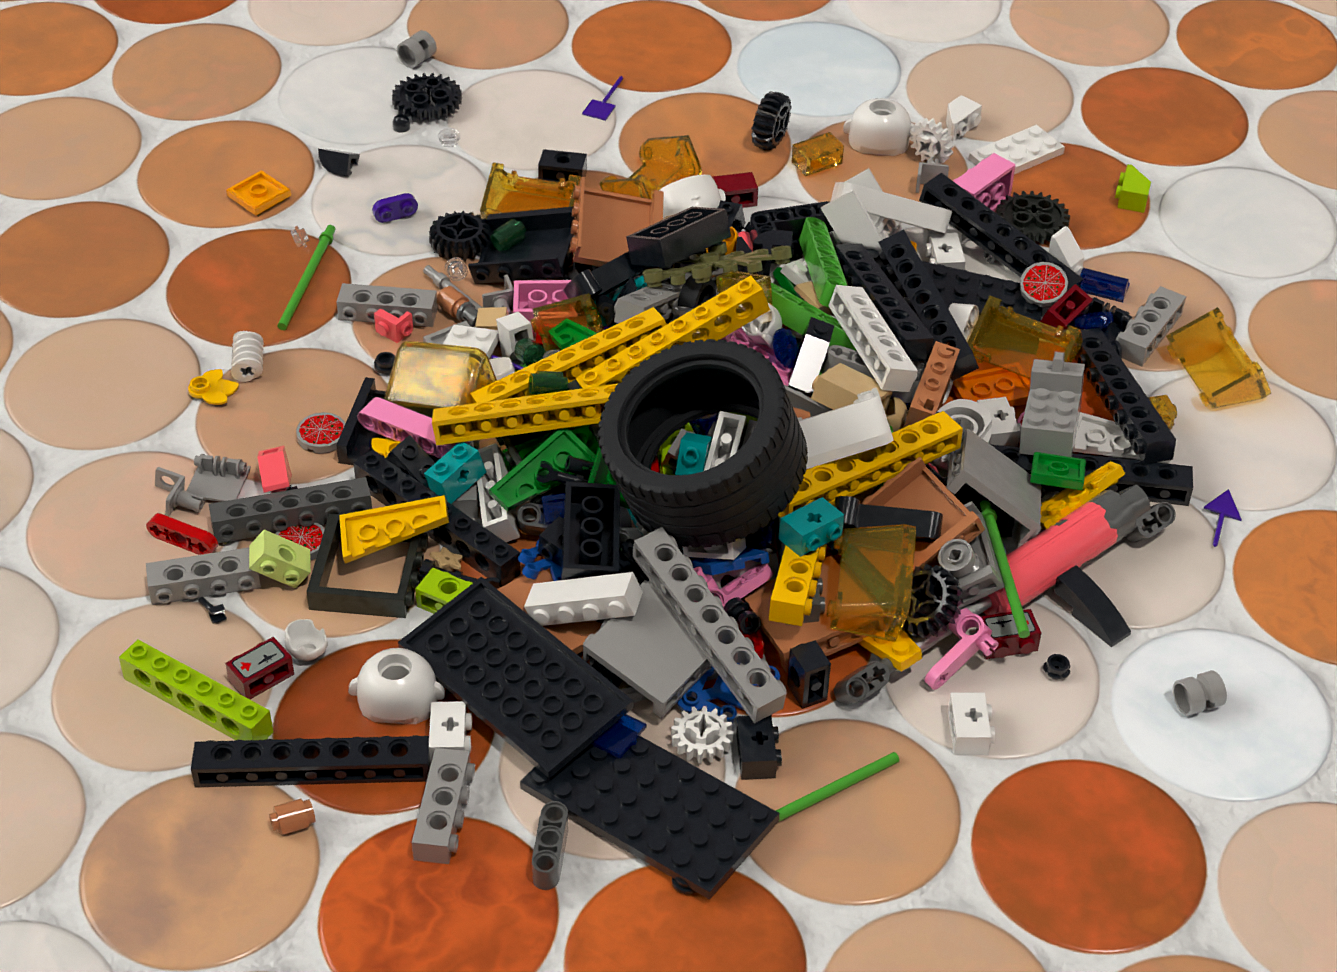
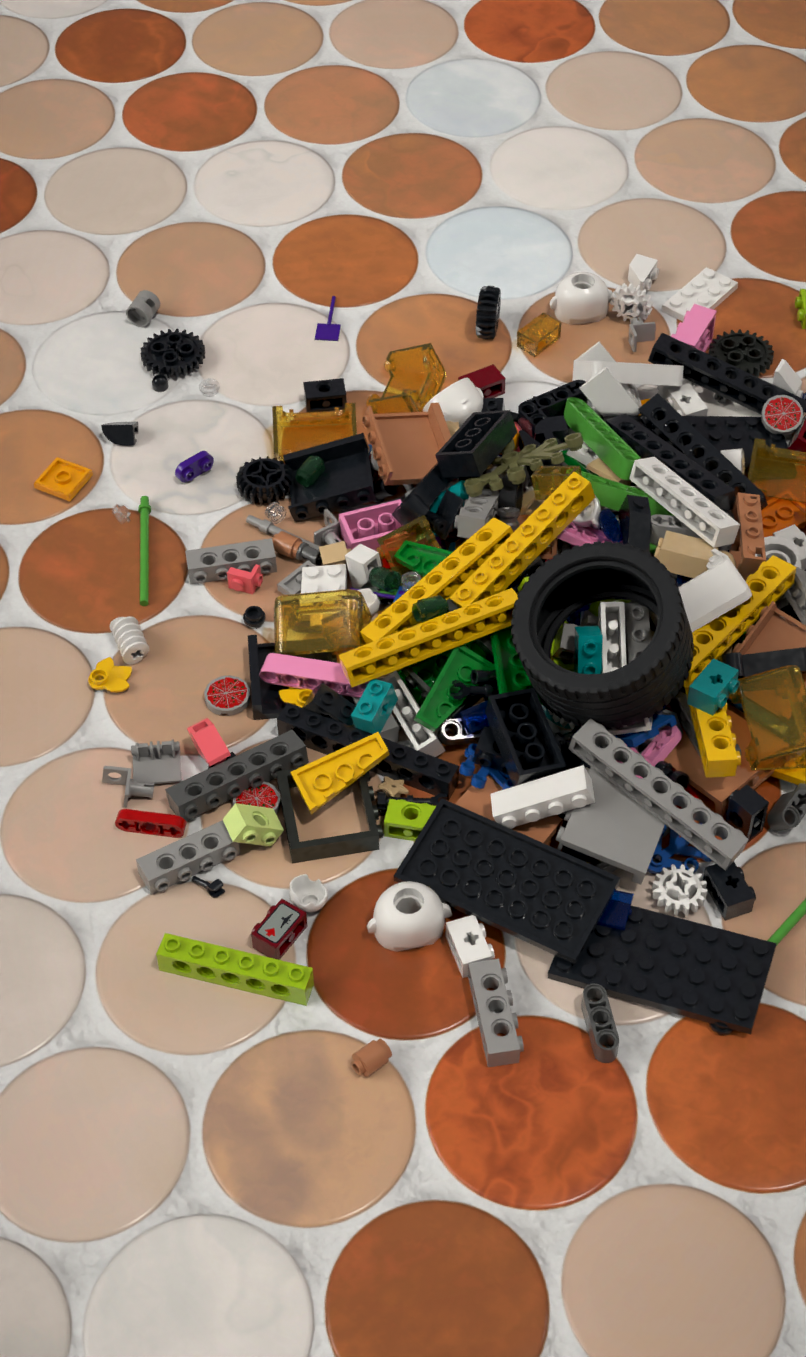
camera: 15 degrees left, 5 degrees up
(310, 761) = (356, 1013): black brick -> none

